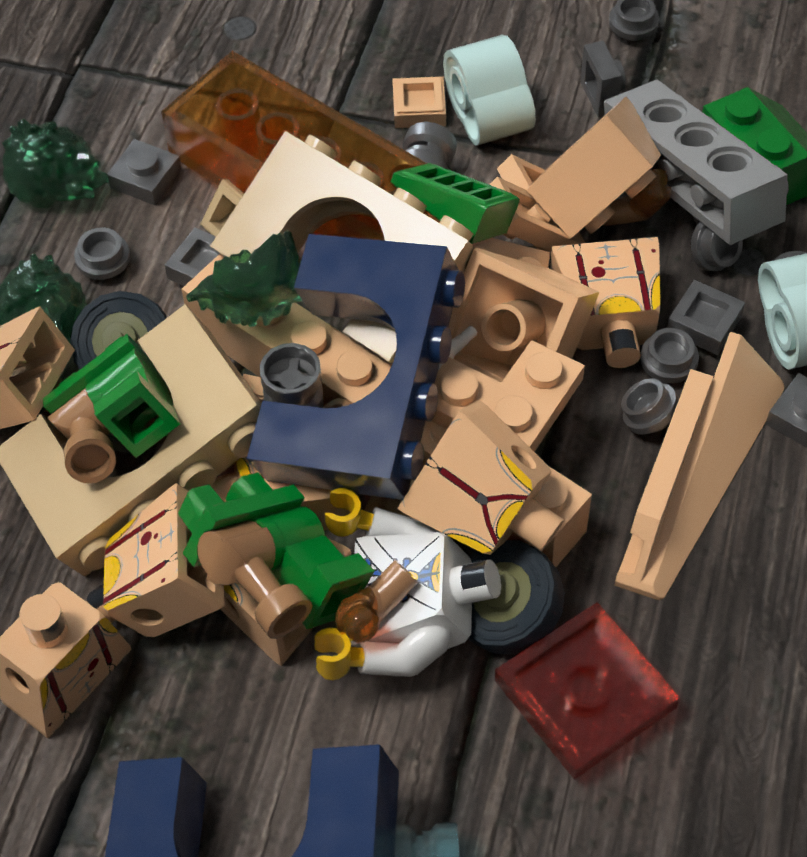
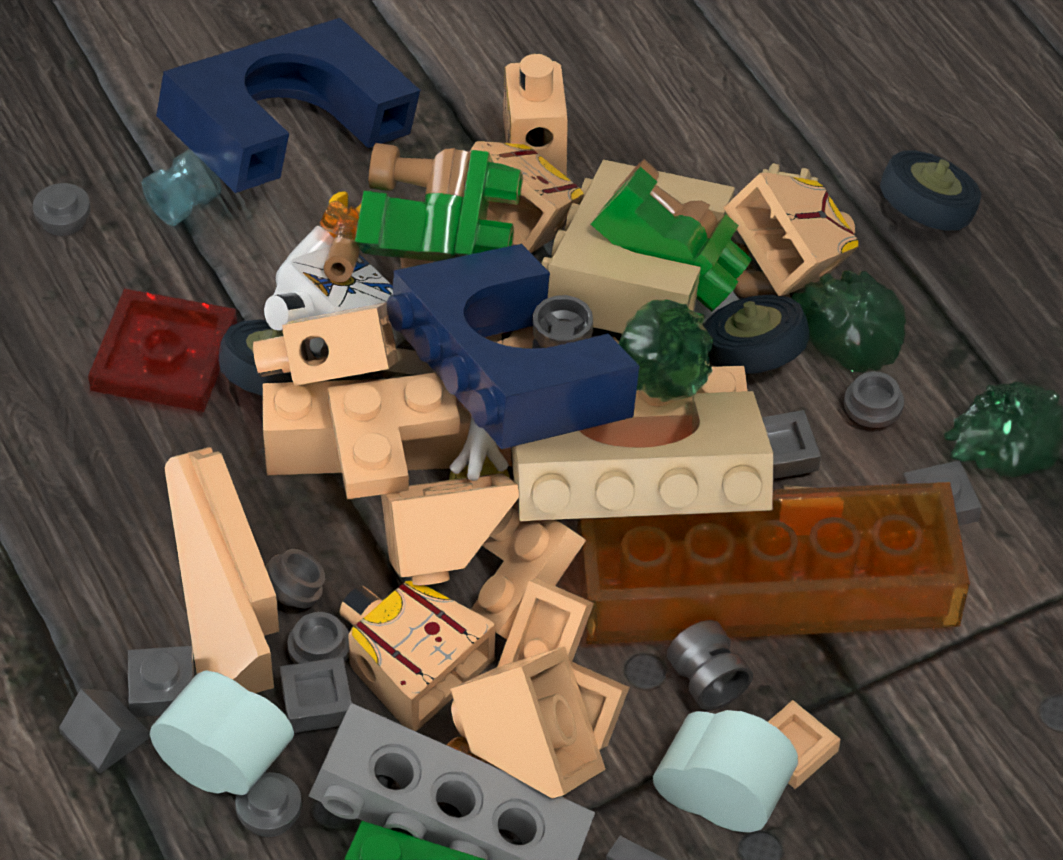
camera: 135 degrees right, 5 degrees down
(470, 202) = (571, 569): green slope -> none

